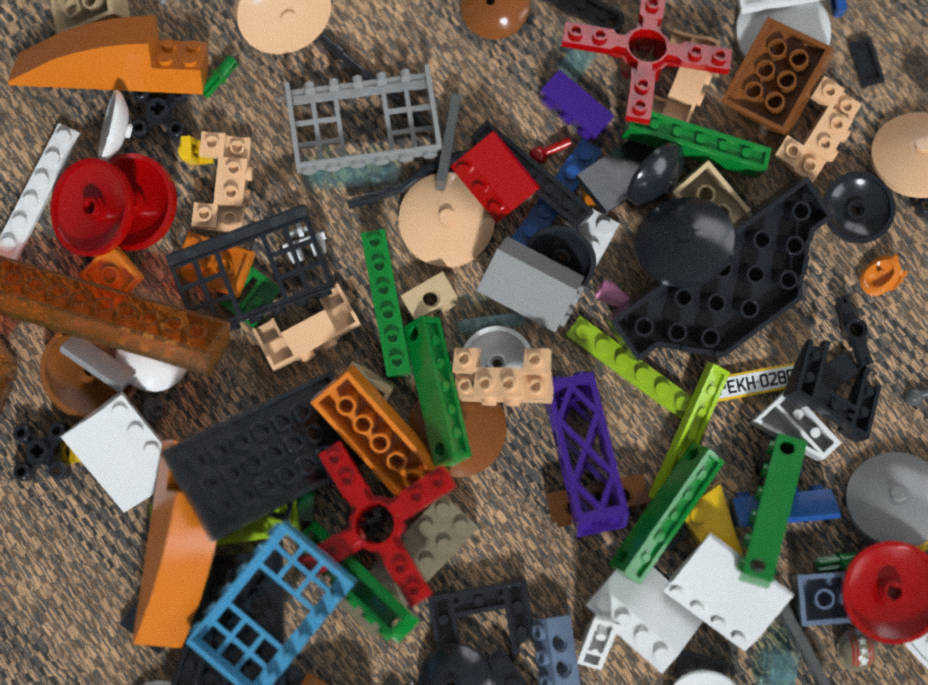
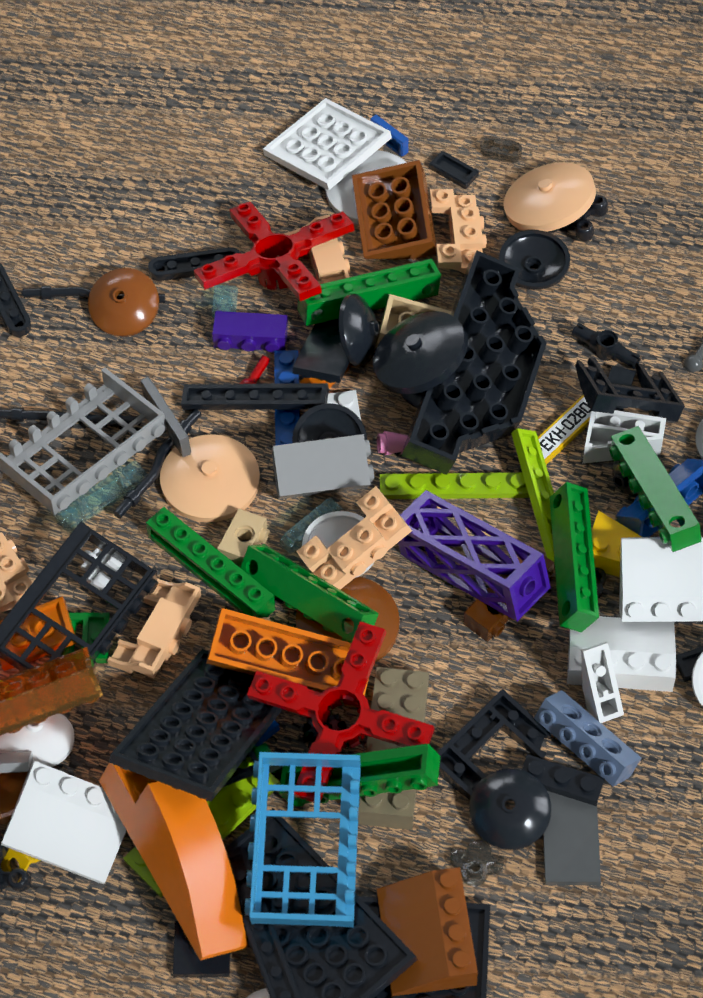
camera: 30 degrees left, 25 degrees down
(495, 176) = (226, 411): red slope -> none
(882, 275) = (594, 294): orange hat -> none

